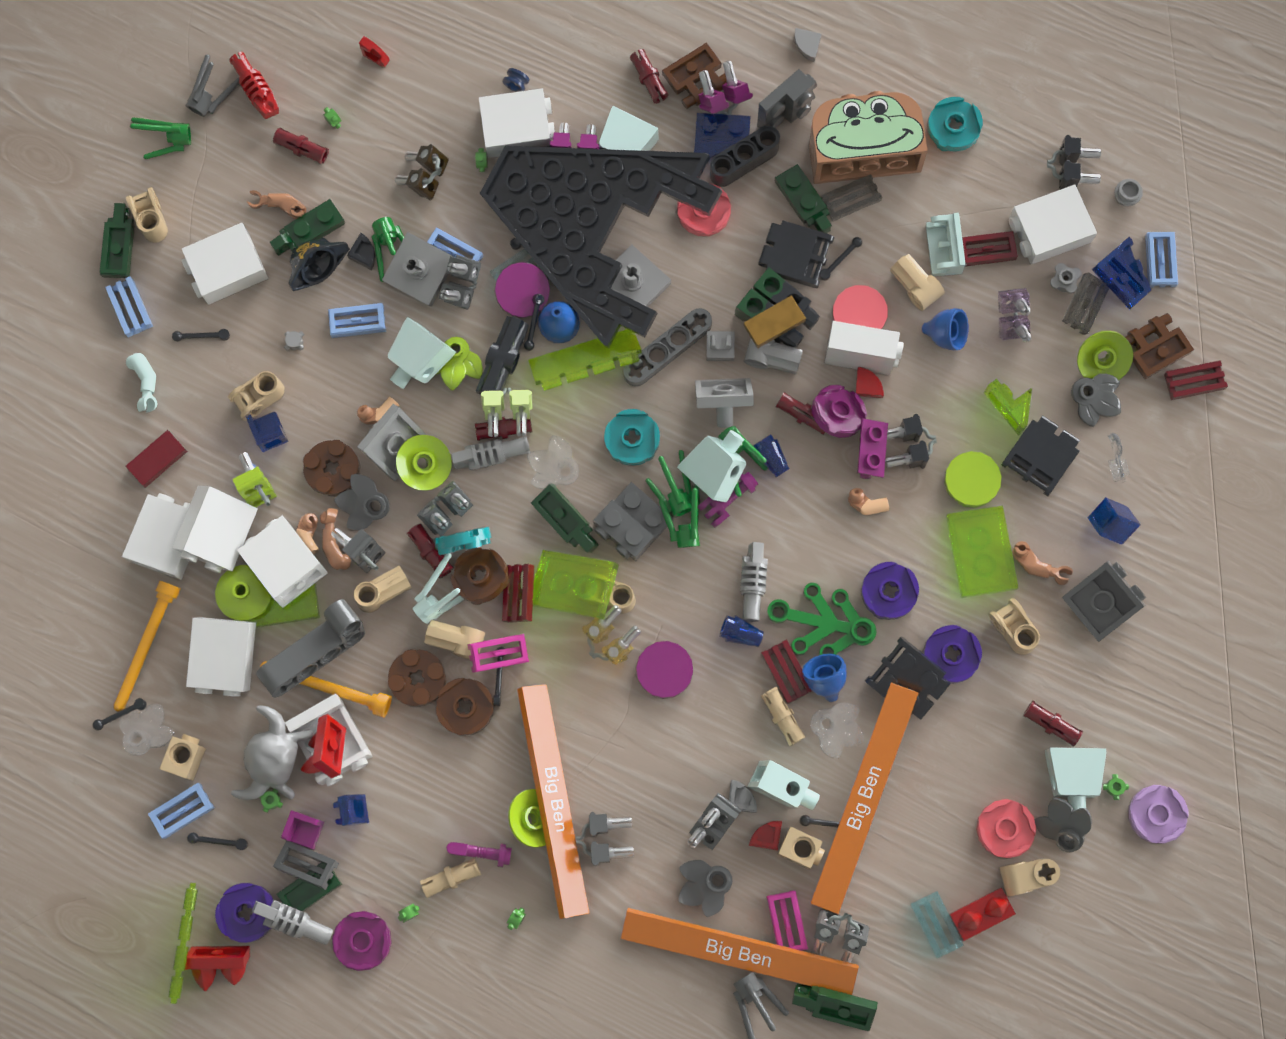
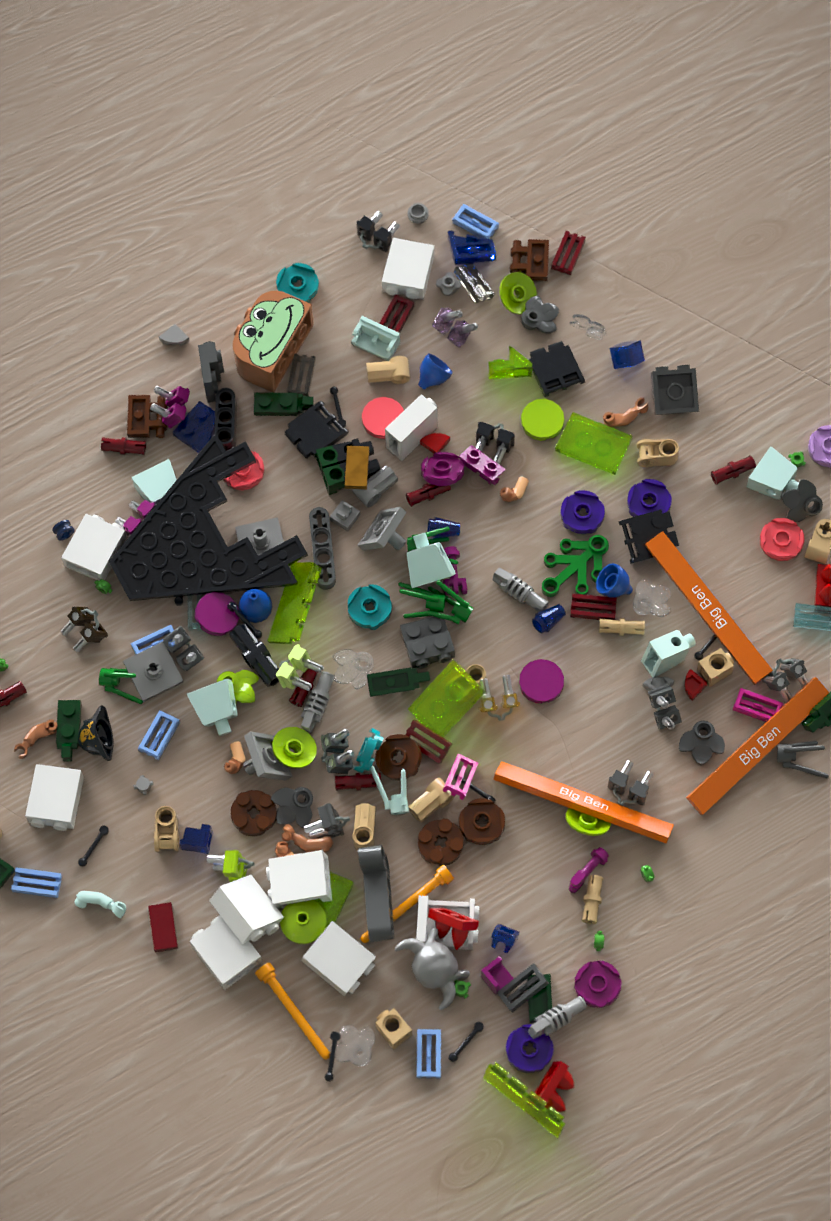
camera: 60 degrees left, 10 degrees down
(362, 252) = (112, 702): black tile -> none

